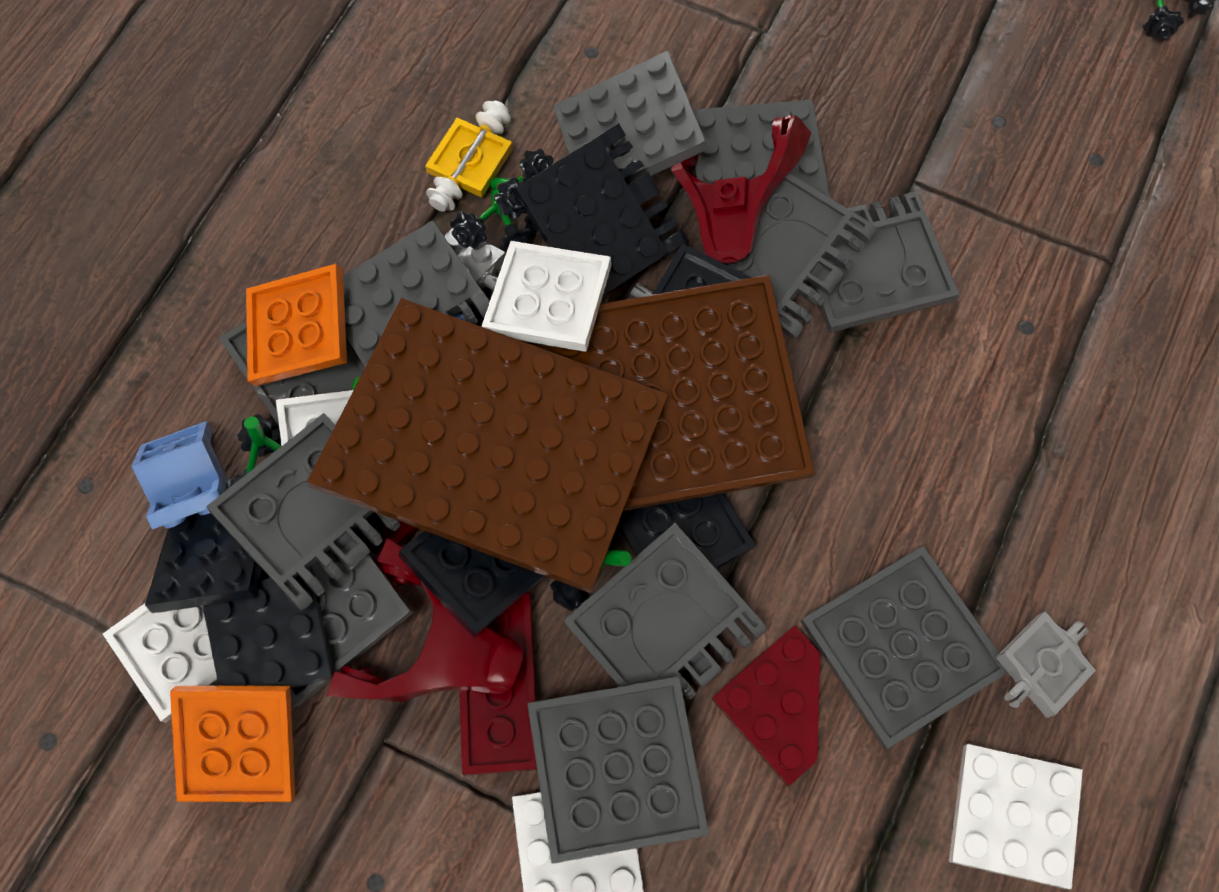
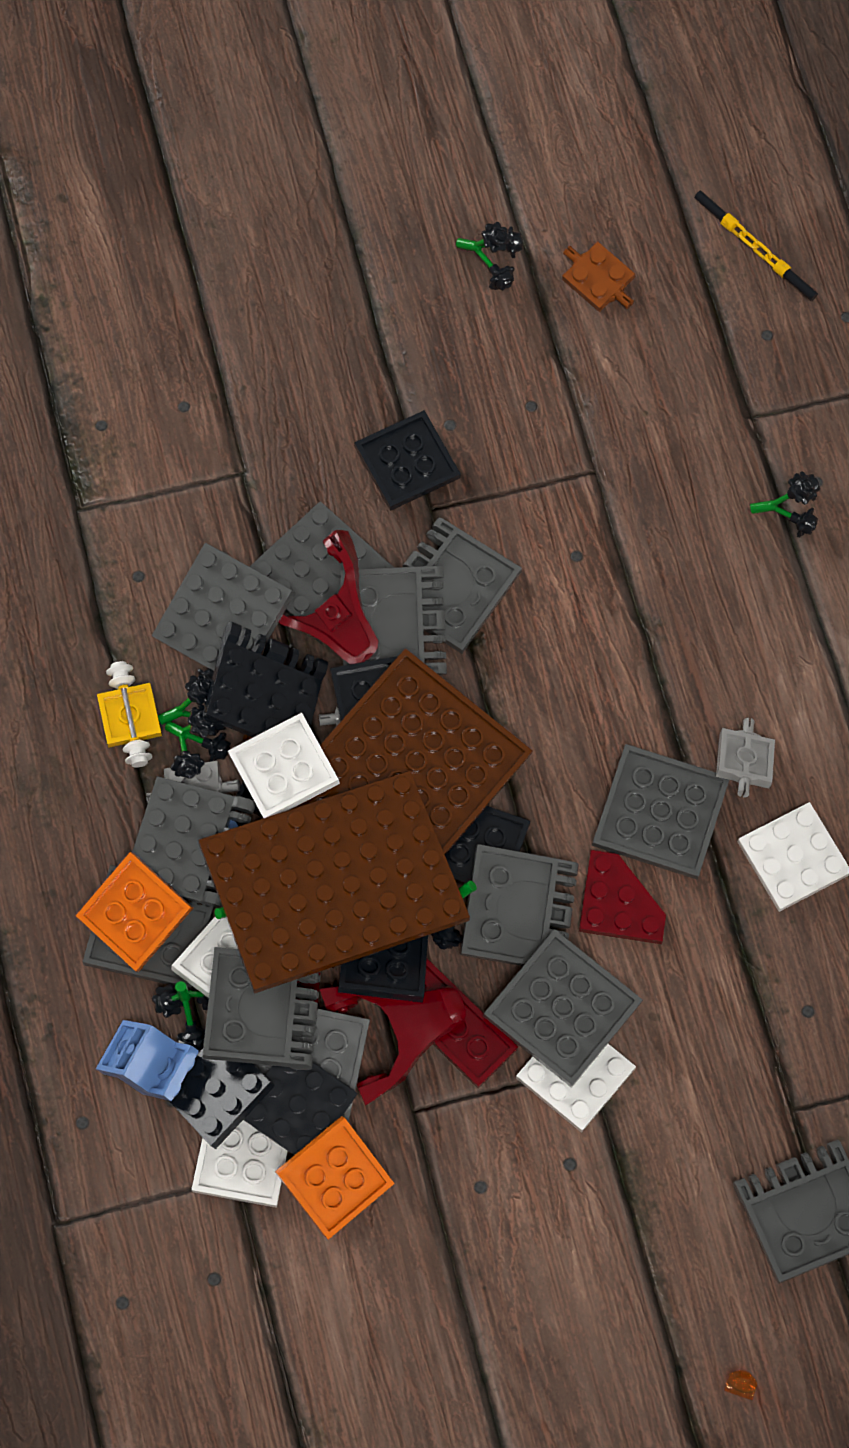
camera: 45 degrees left, 0 degrees up
(929, 121) = (407, 460): none -> black plate

